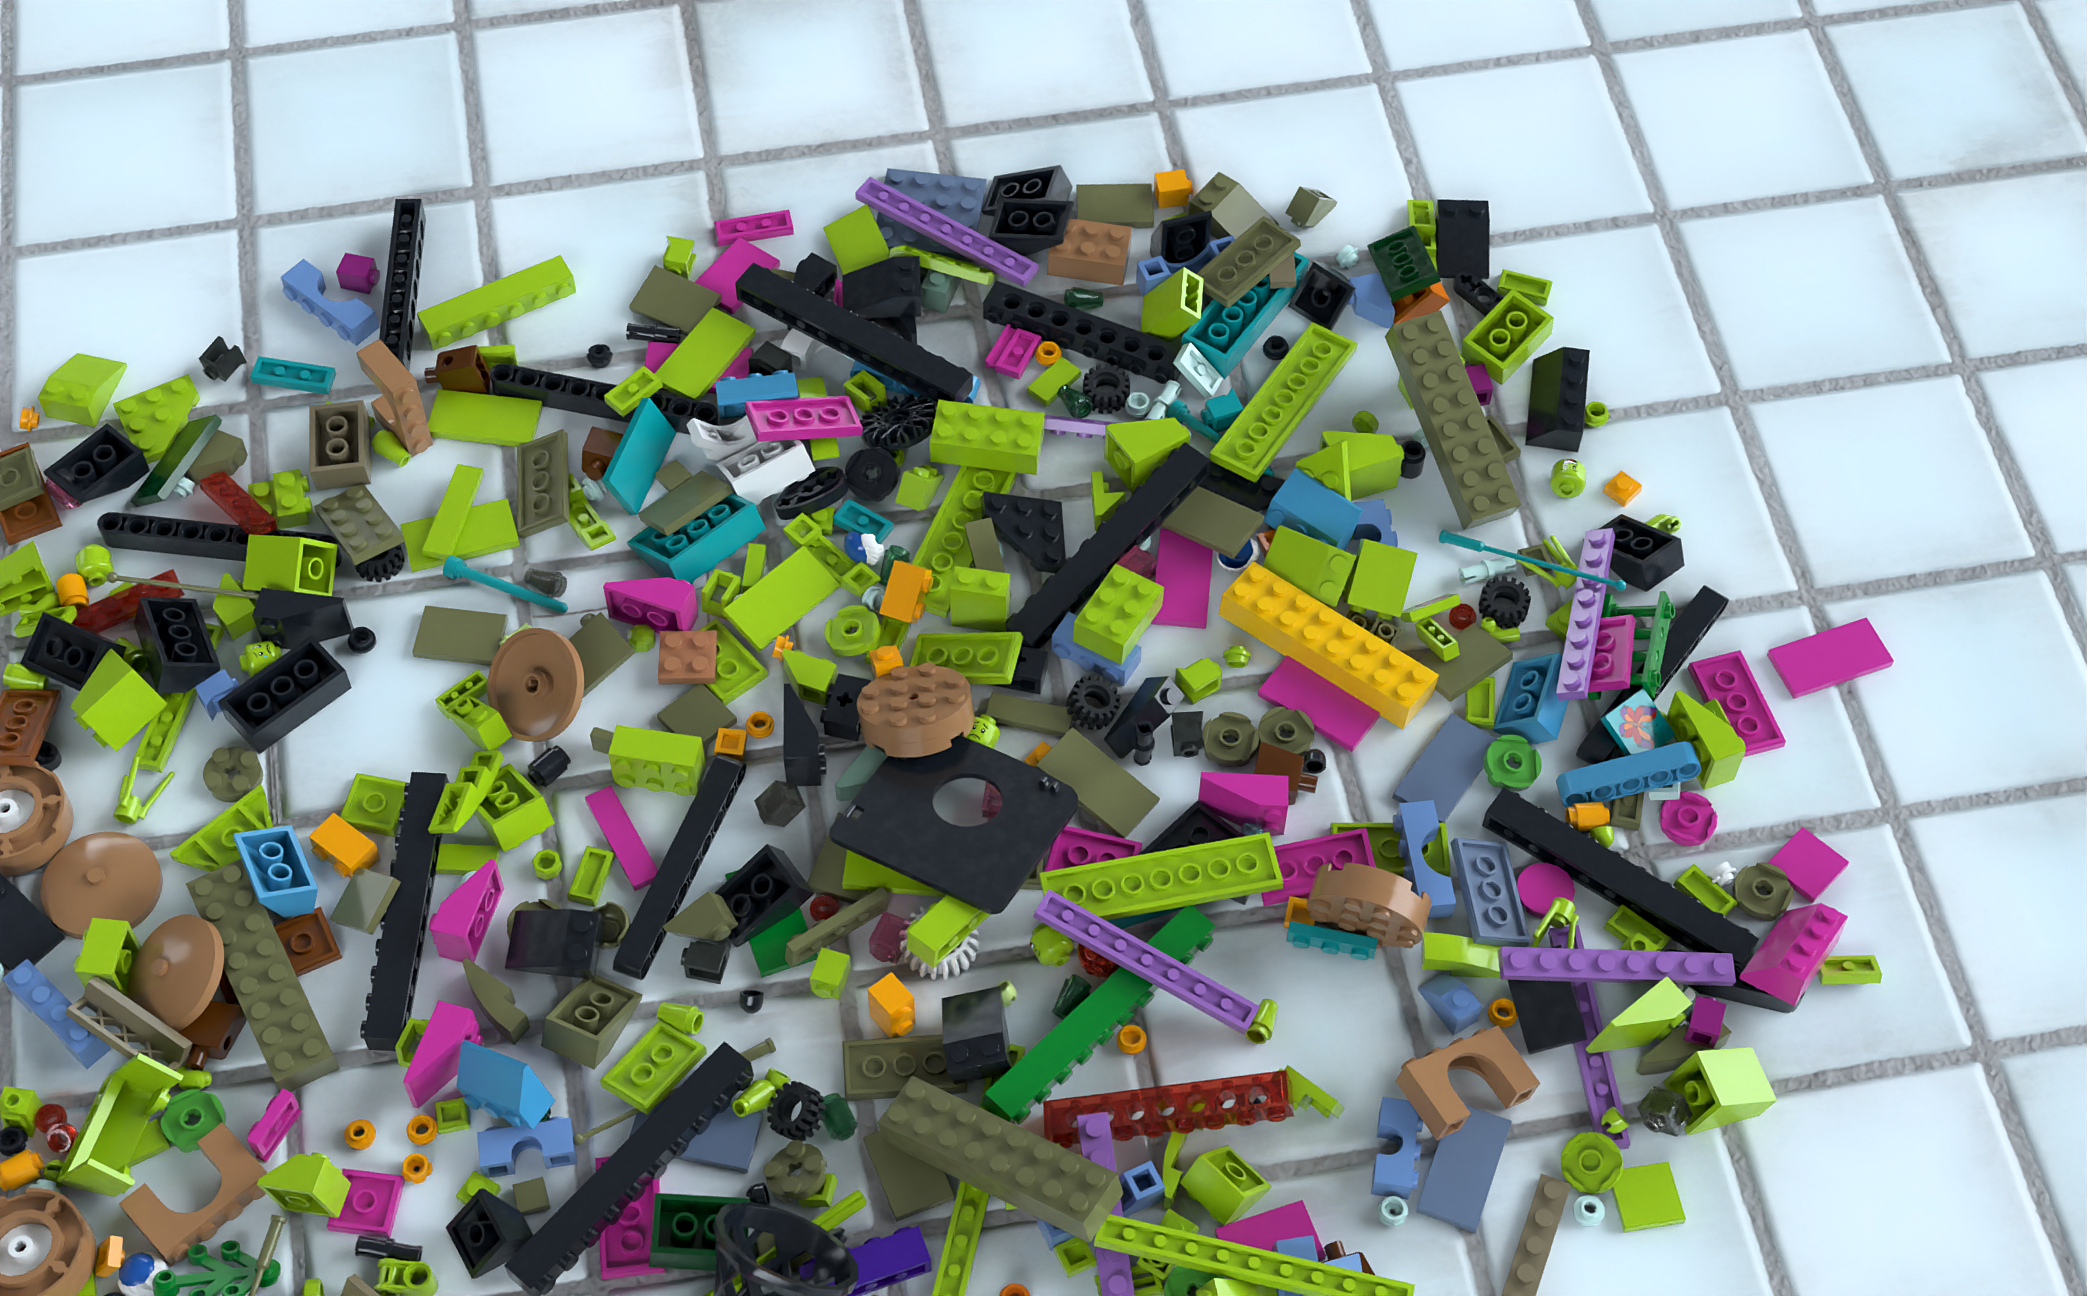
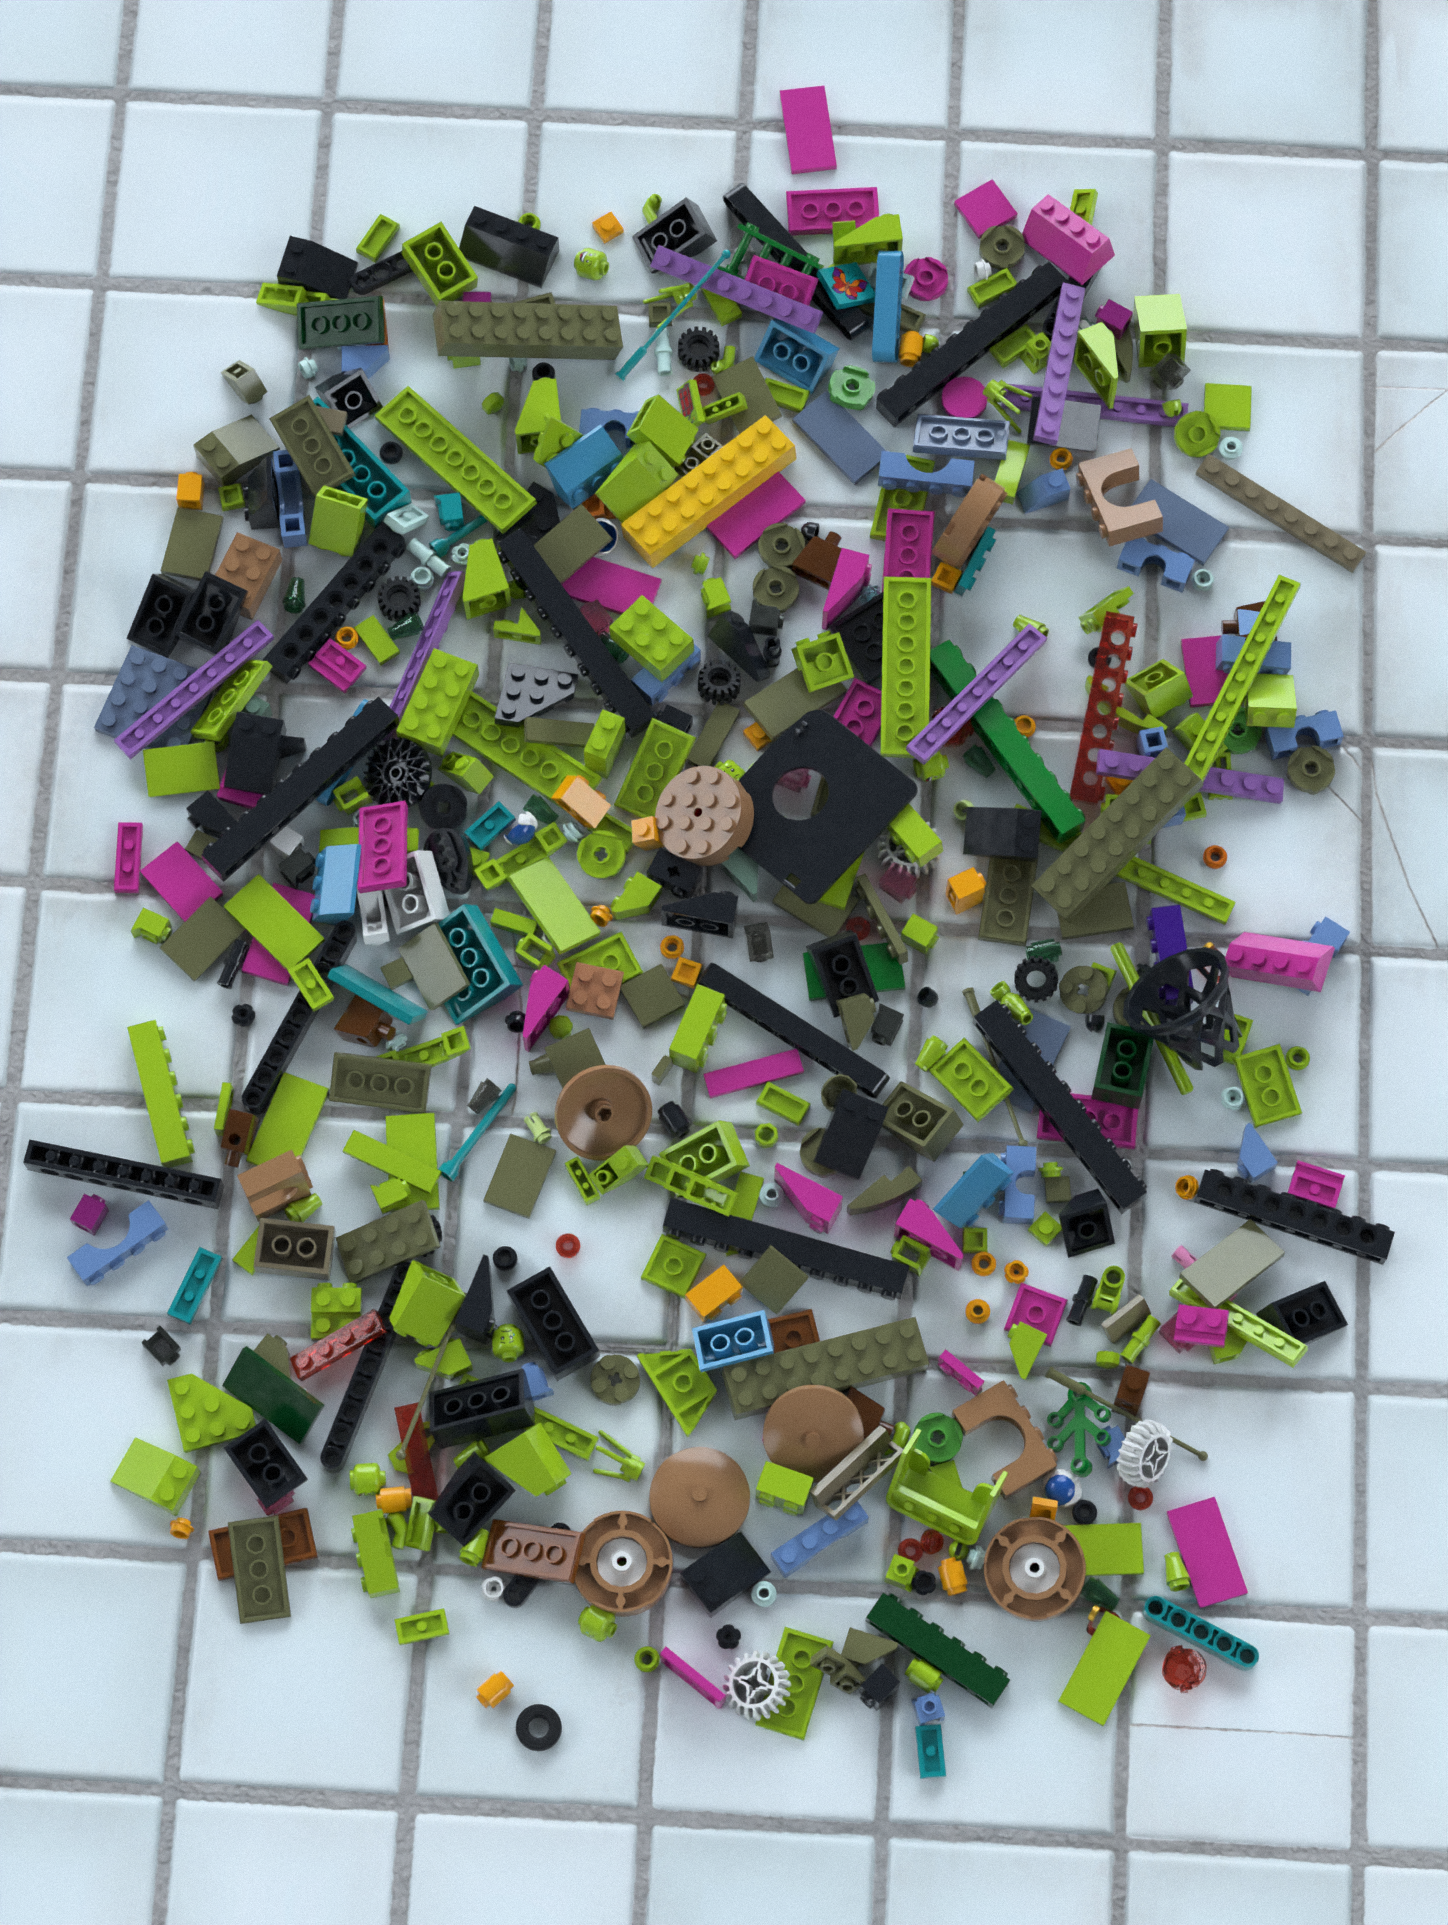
camera: 75 degrees left, 15 degrees up
(381, 690) = (567, 1238): none -> clear red plate
(412, 514) = (391, 1194): none -> lime window
(553, 1181) = (1050, 1169): none -> lime plate
(1147, 796) = (822, 660): none -> lime plate

